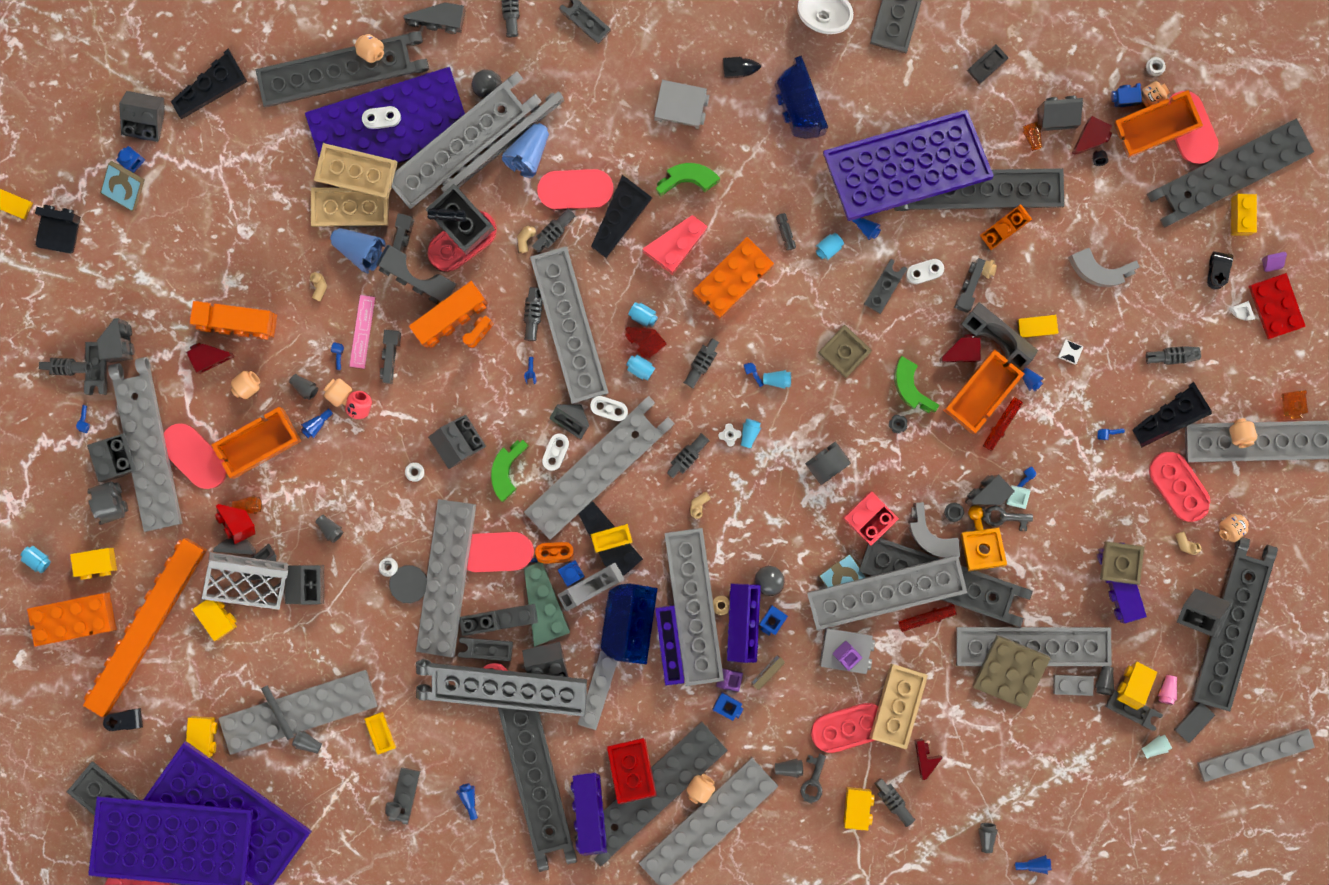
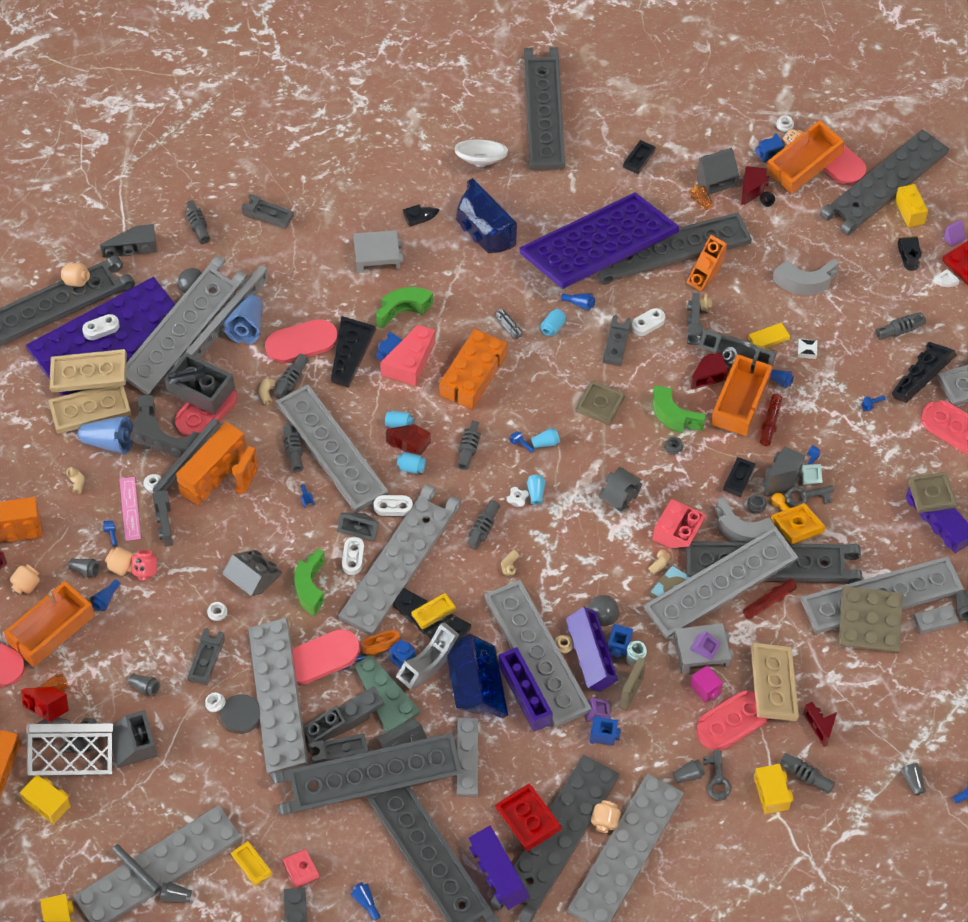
camera: 15 degrees left, 30 degrees down
(391, 519) = (206, 657): none -> dark grey plate
(396, 312) = (151, 478): none -> white plate
(420, 752) = (300, 868): none -> coral piece
(426, 303) = (170, 477): none -> dark grey axle
(657, 227) = (387, 345): none -> blue brick
(786, 641) = (634, 651): none -> light aqua cone
(836, 688) = (706, 684): none -> dark pink brick
(840, 549) = (657, 566): none -> tan arm
(948, 478) = (739, 477): none -> black plate
(989, 343) = (729, 355): none -> dark grey plate

